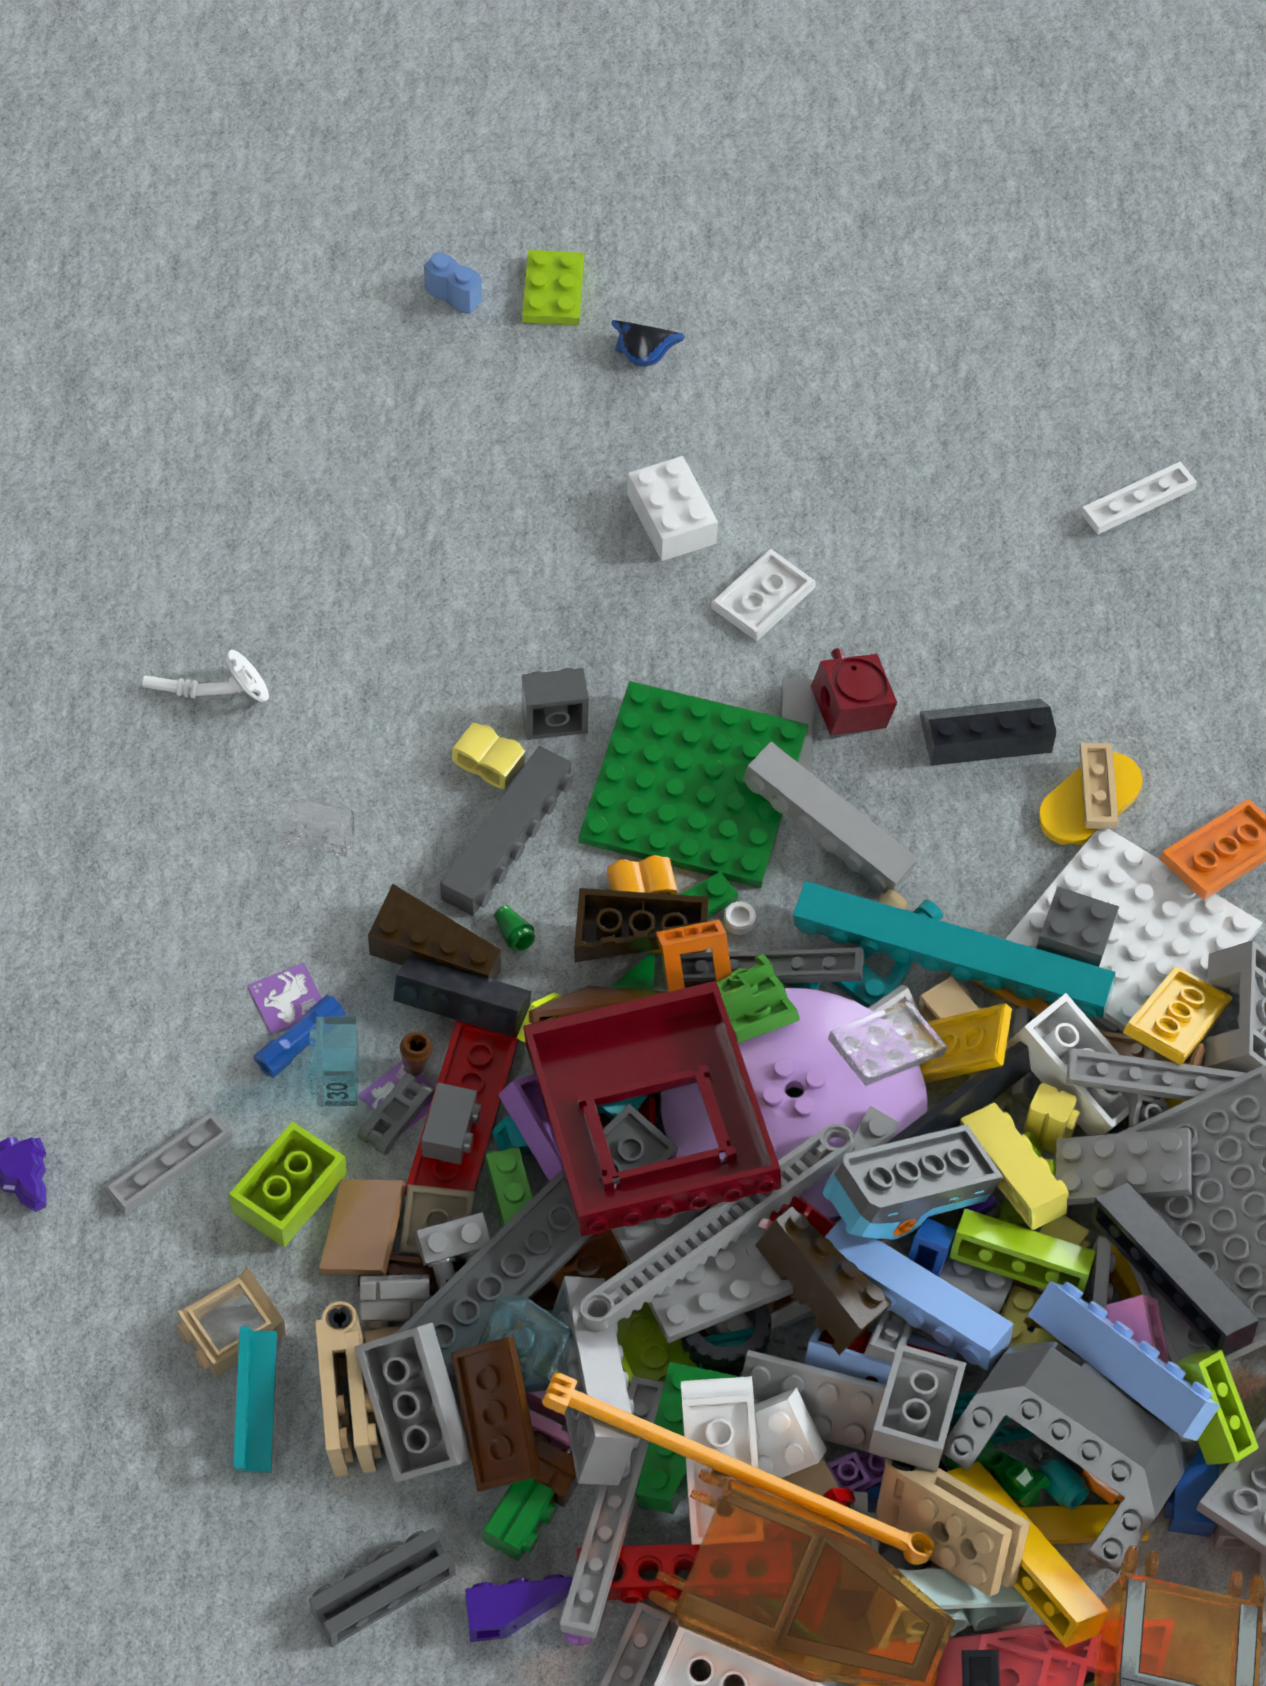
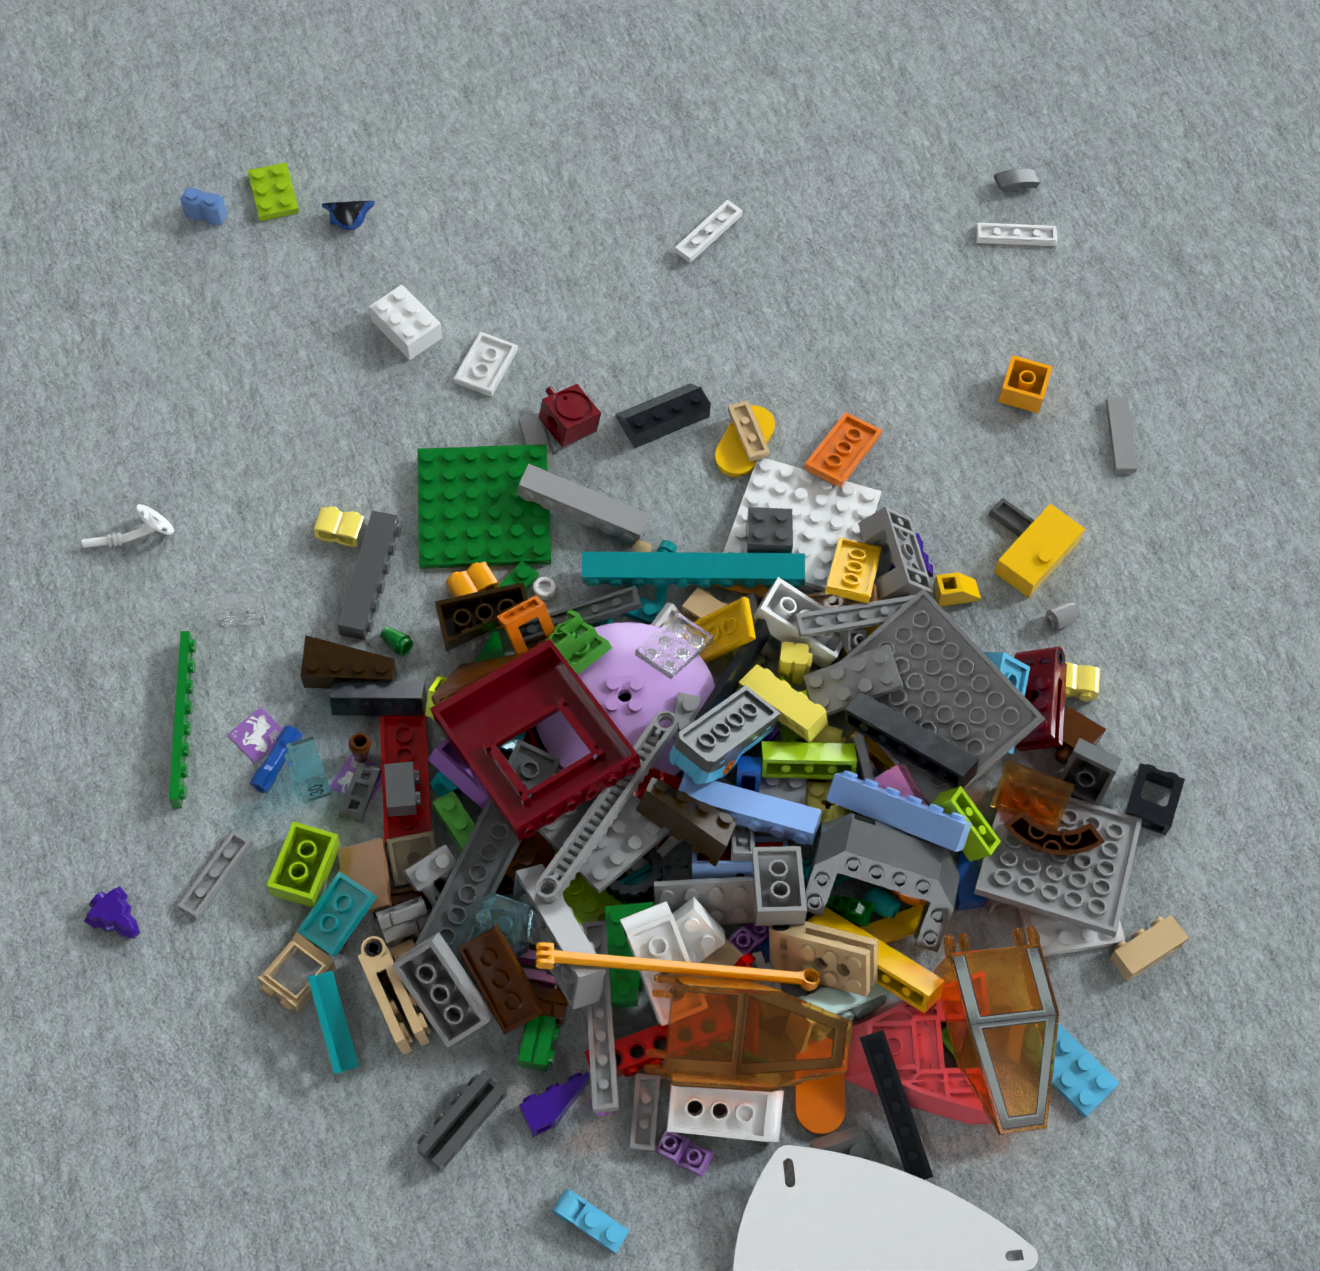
camera: 20 degrees left, 5 degrees up
(191, 953) = (182, 727): none -> green plate
(309, 1262) = (337, 914): none -> teal plate
(555, 703) = (373, 478): dark grey brick -> none

